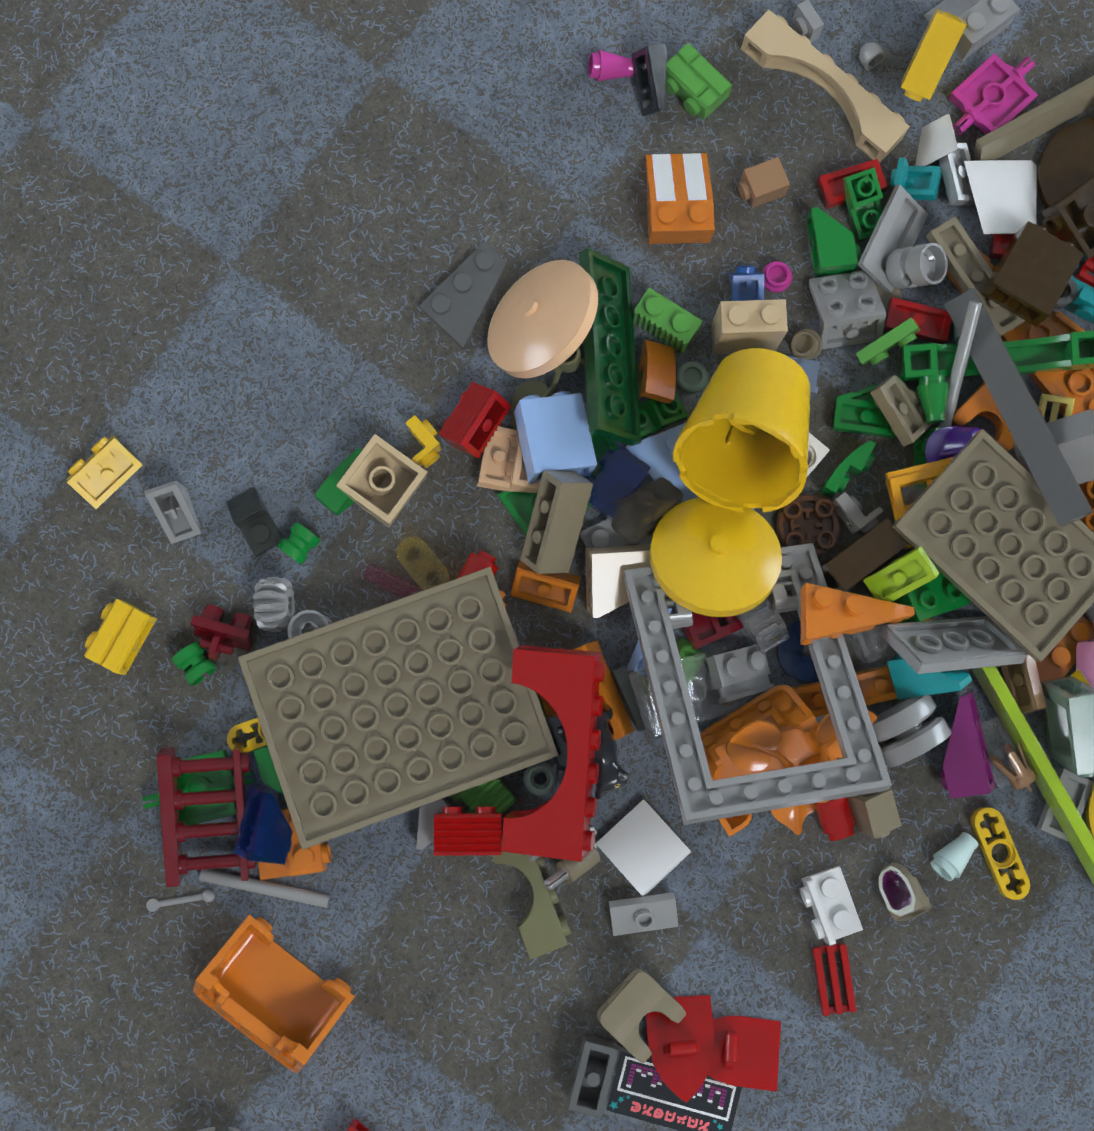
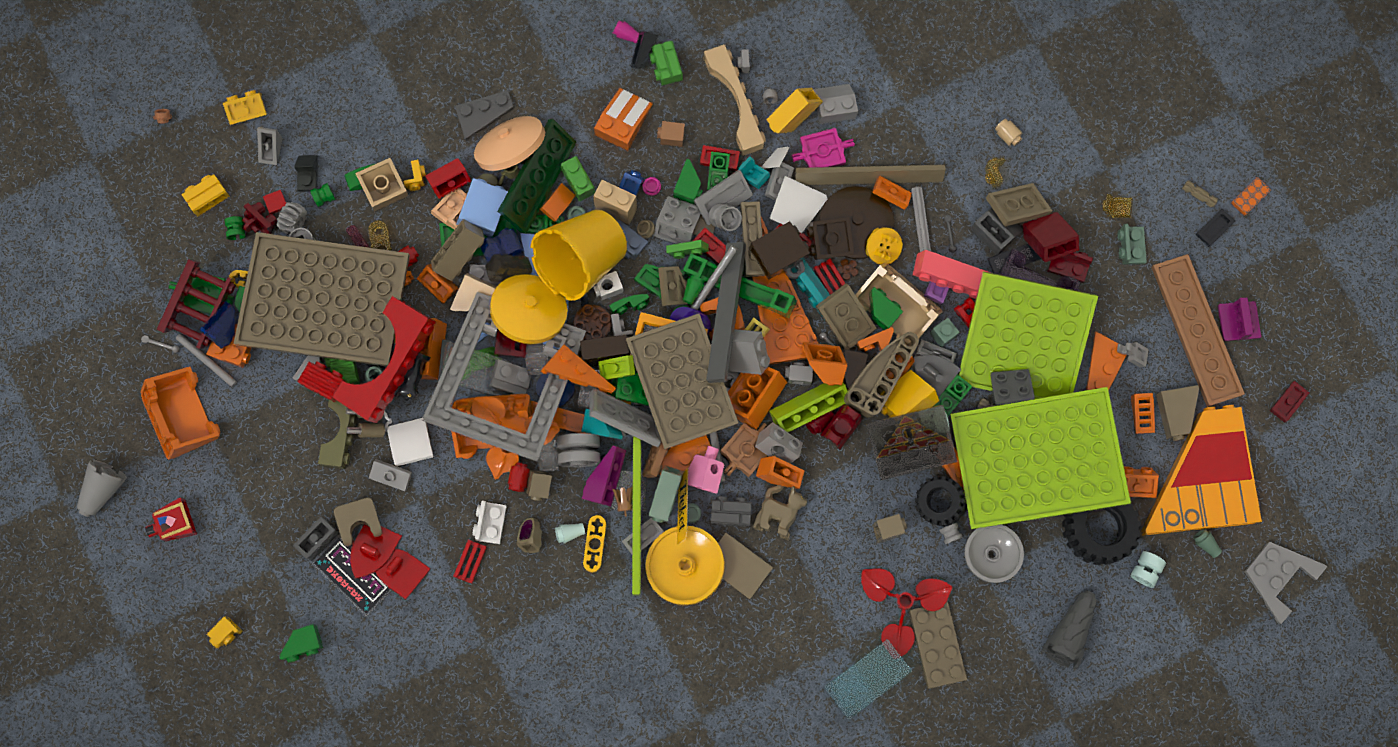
camera: 25 degrees right, 5 degrees down
(232, 591) = (275, 201): none -> red tile

